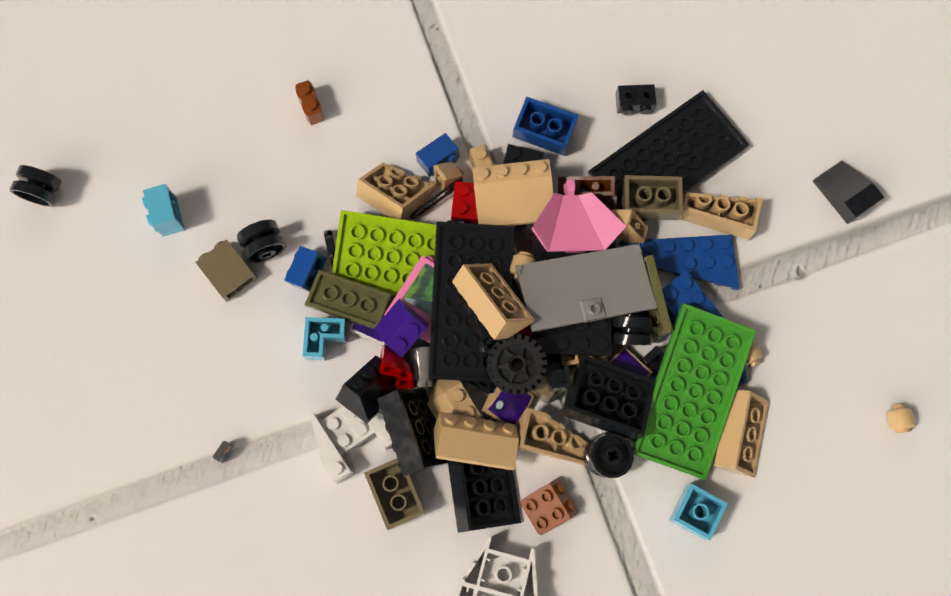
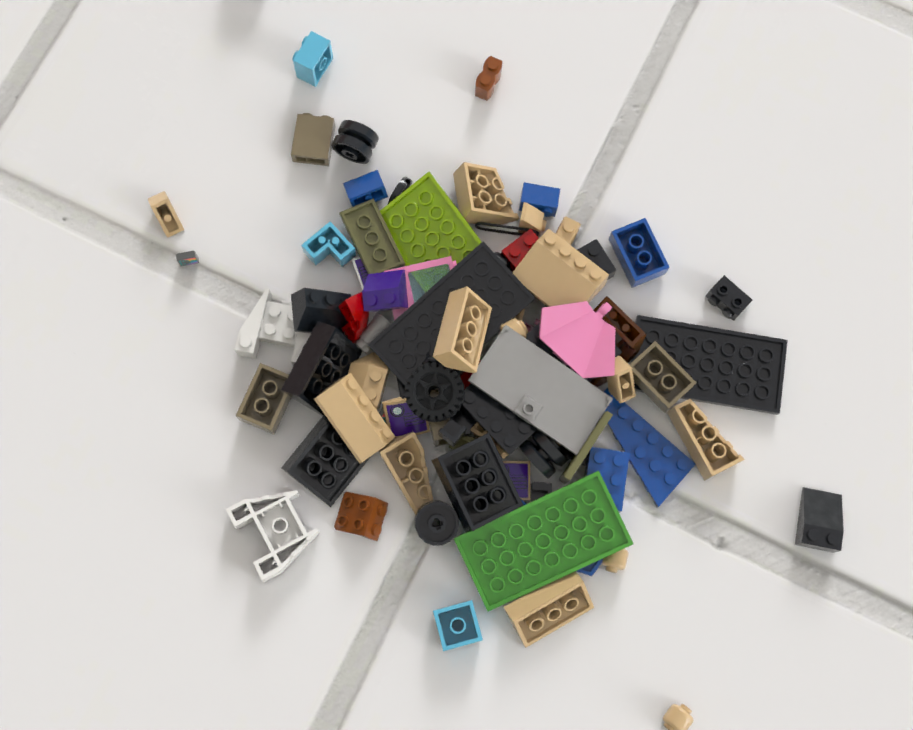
camera: 45 degrees right, 0 degrees up
(170, 435) = (165, 214): none -> tan slope

